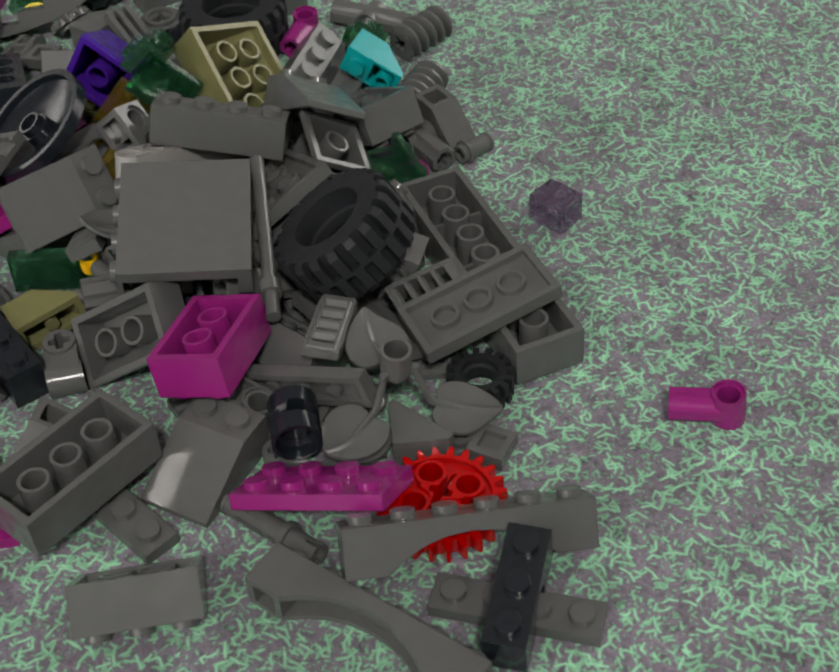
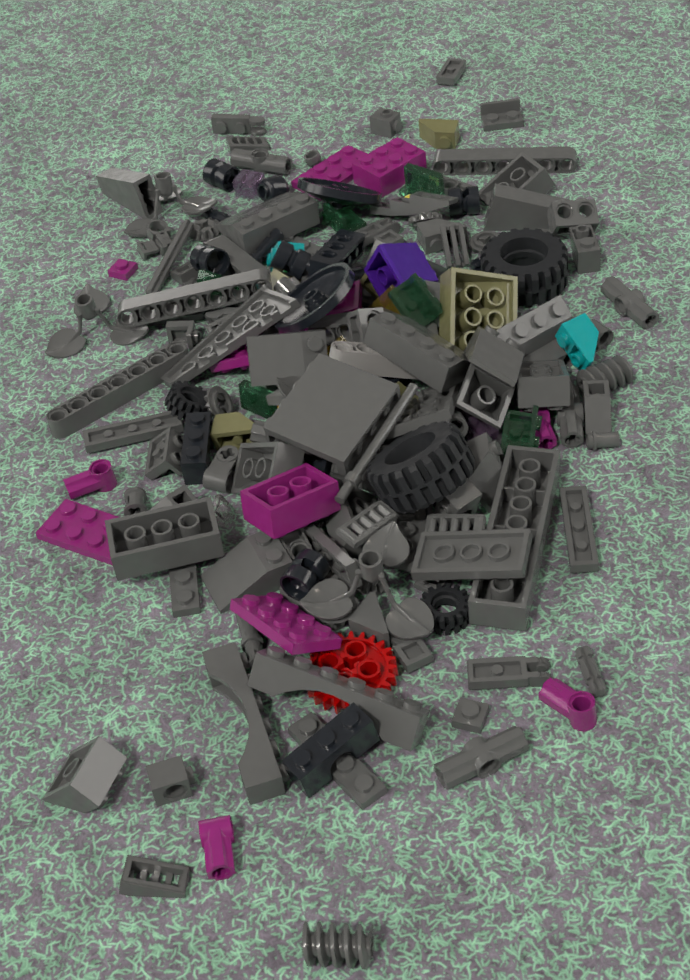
camera: 40 degrees right, 0 degrees up
(137, 599) = (148, 632): dark grey slope -> none
(156, 41) = (418, 271): clear green bracket -> none
(304, 20) = (573, 291): magenta piece -> none
(371, 26) = (605, 315): clear green bracket -> none
(420, 32) = (649, 328): dark grey piece -> none
(548, 244) = (578, 529): none -> dark grey plate
(555, 206) = (612, 512): clear purple brick -> none
(609, 411) = (507, 672): none -> dark grey hinge
(615, 475) = (470, 715): none -> dark grey plate
(676, 510) = (481, 757): none -> dark grey piece
(688, 364) = (590, 671): none -> dark grey axle

